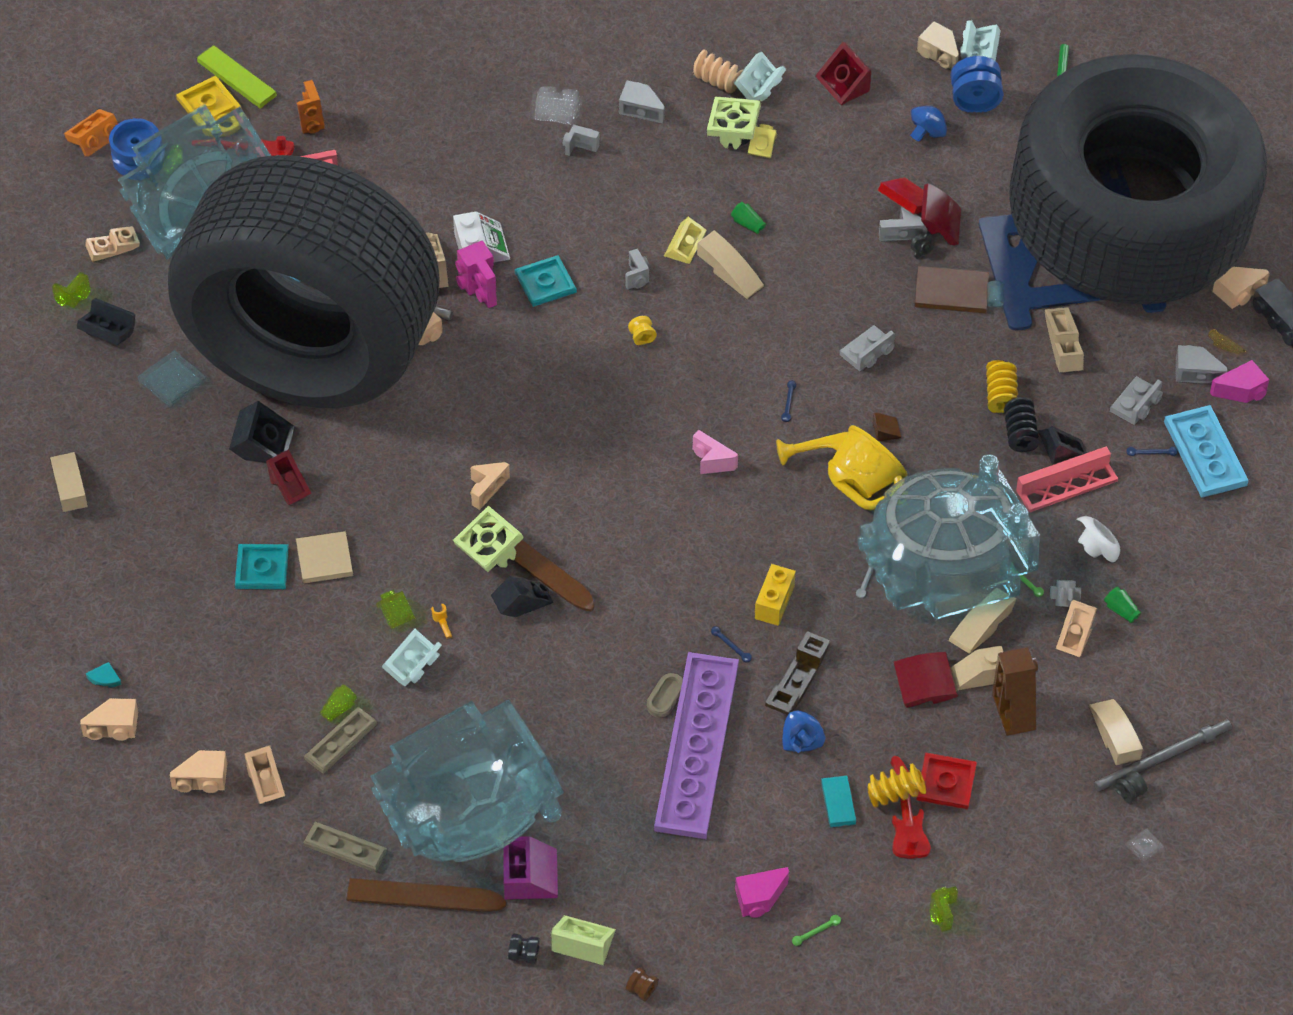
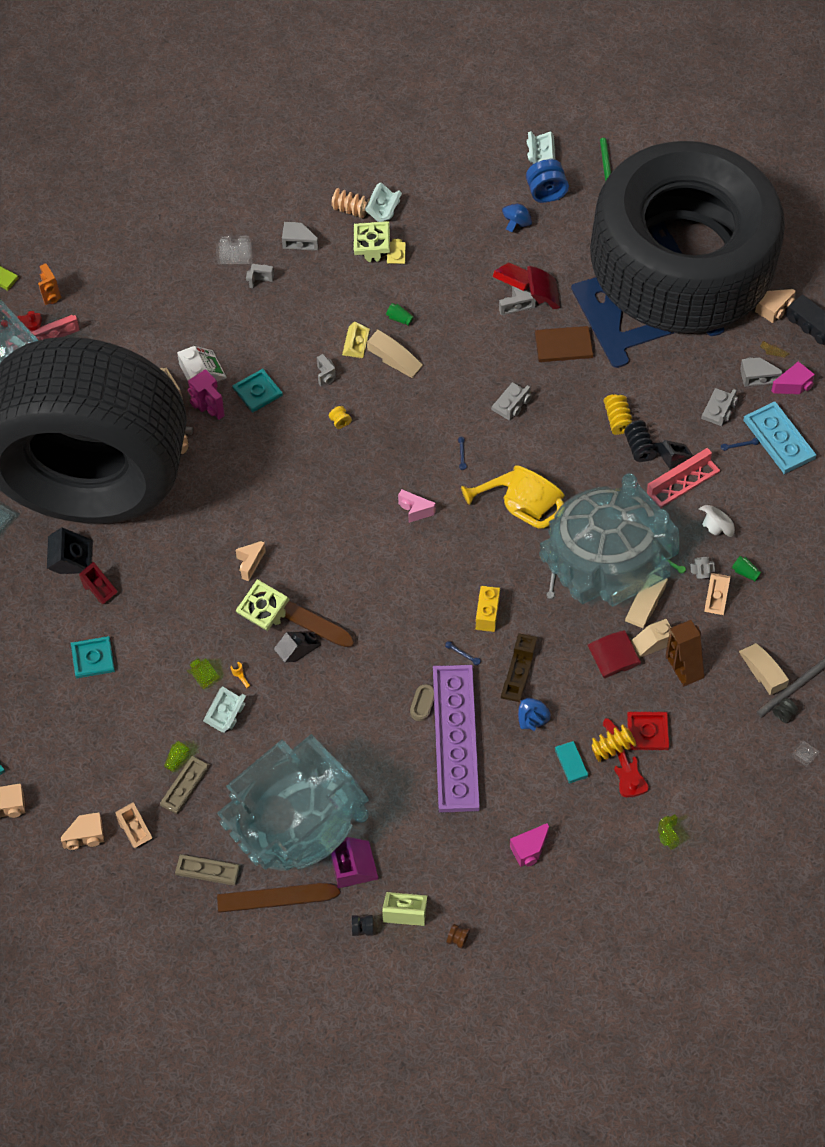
camera: 10 degrees left, 5 degrees up
(324, 557) = (139, 641): tan tile -> none
(834, 920) = (589, 856): bright green hinge -> none
(845, 75) = (446, 189): dark red slope -> none
(885, 427) = (539, 461): reddish brown slope -> none
(921, 245) = (533, 313): pearl dark grey plate -> none
(938, 45) = (511, 154): tan slope -> none
(995, 294) = (597, 342): clear light blue hinge -> none
(1064, 339) = (656, 369): tan slope -> none

